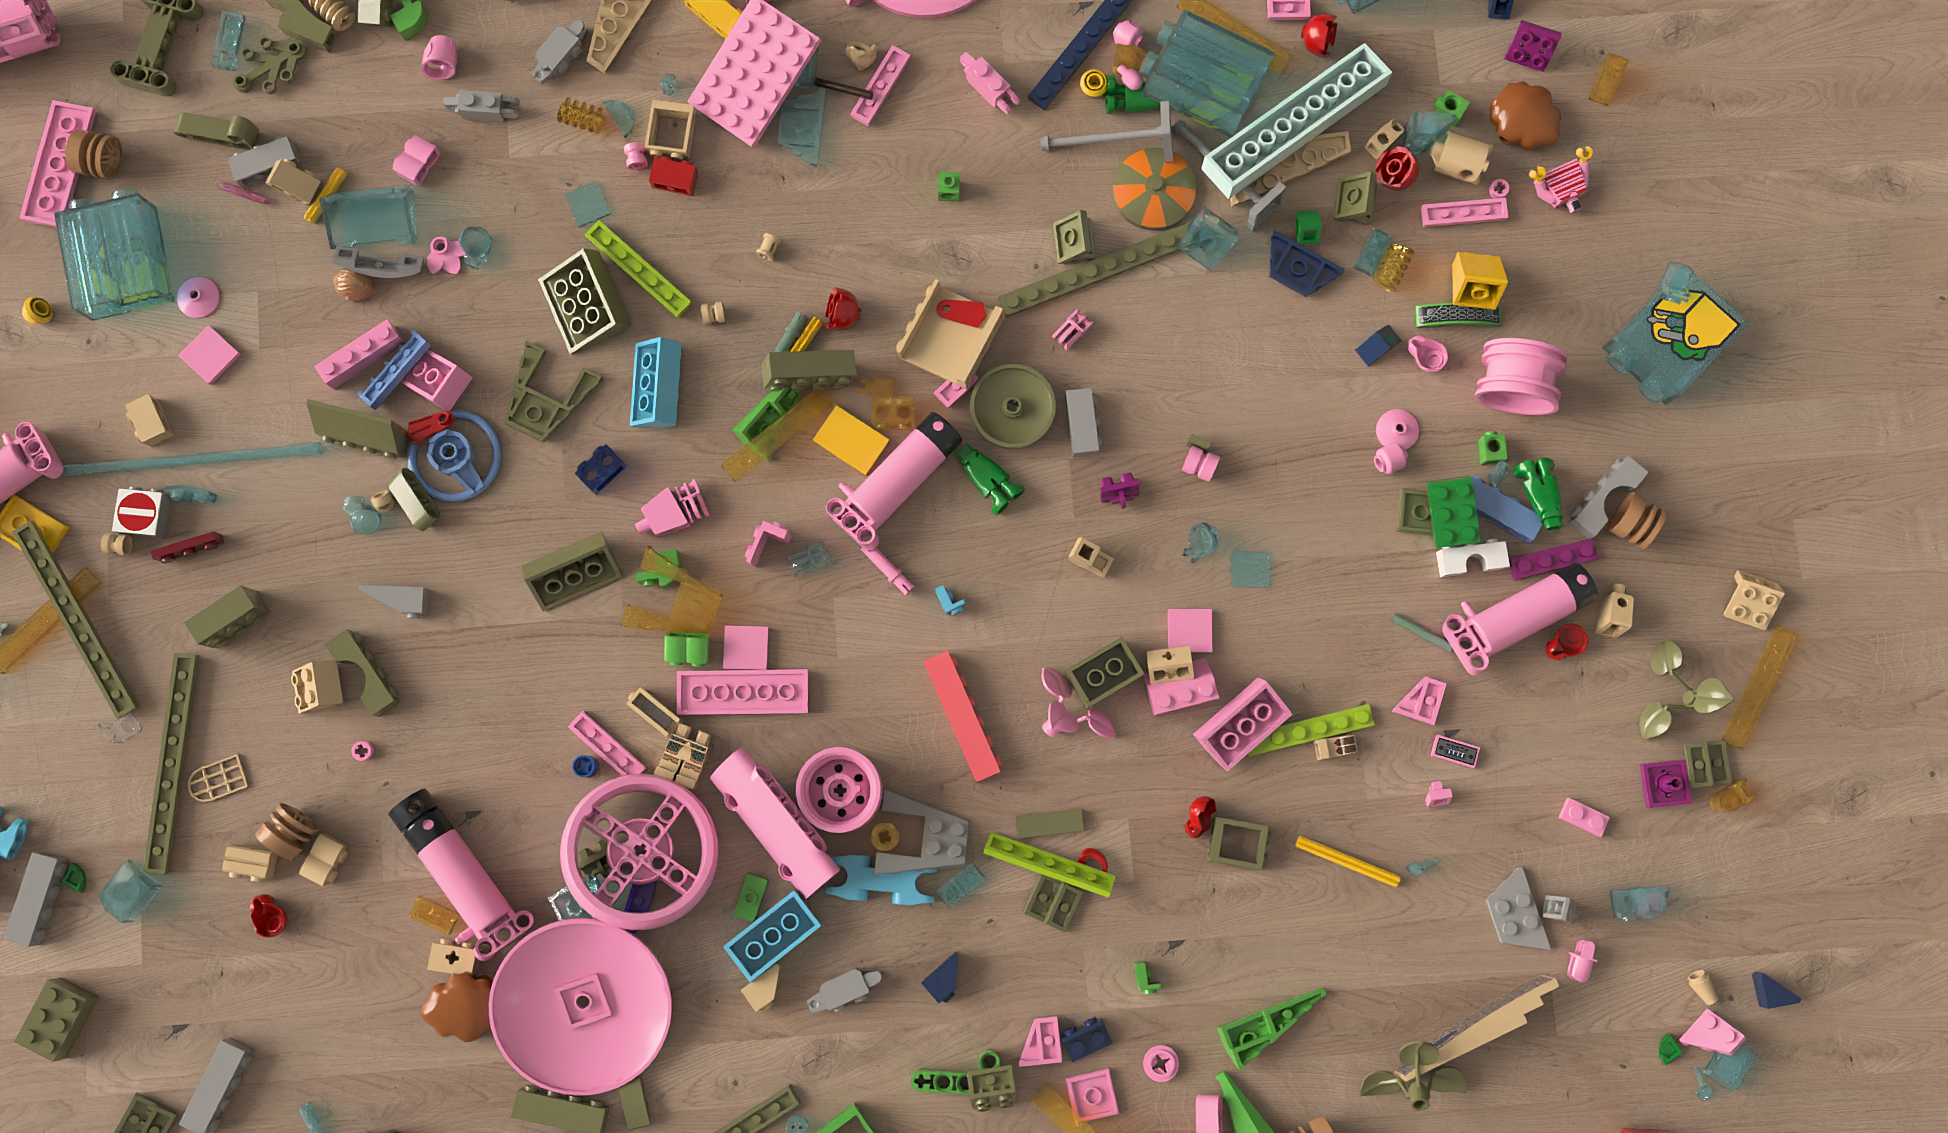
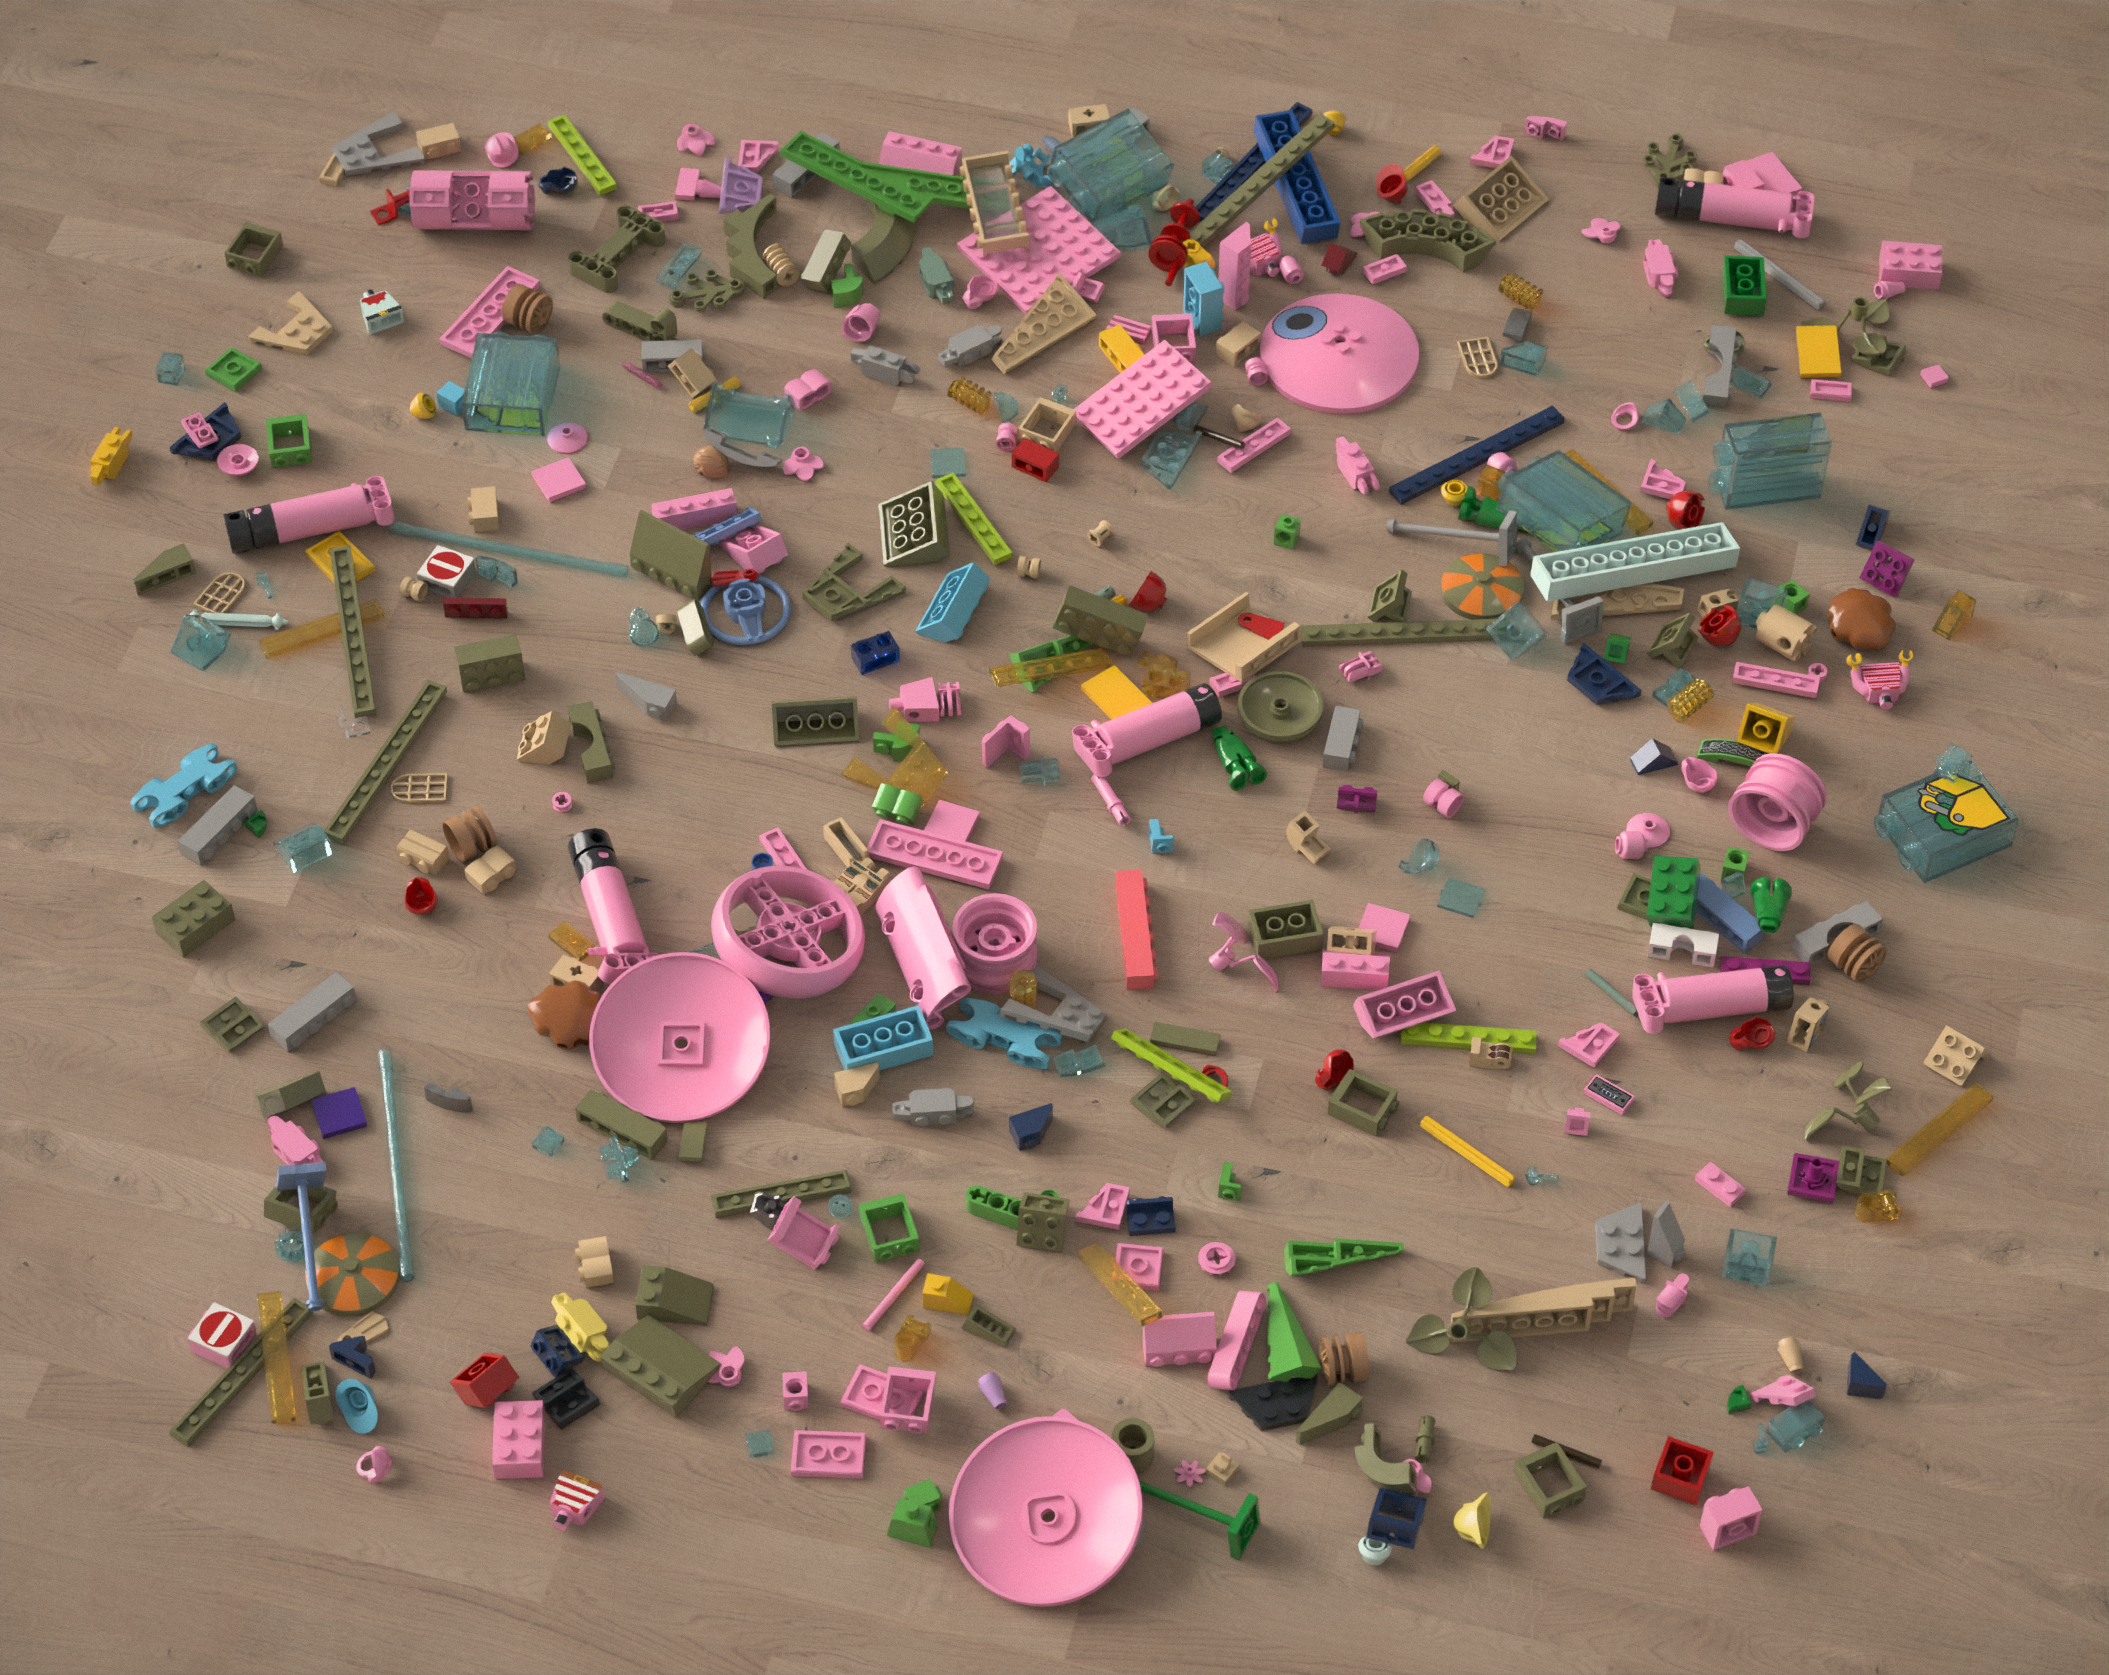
camera: 20 degrees right, 30 degrees down
(57, 289) = (450, 398): none -> medium azure brick
(476, 246) = (833, 462): clear light blue hair -> none
(1130, 77) = (1489, 491): bright pink cylinder -> none

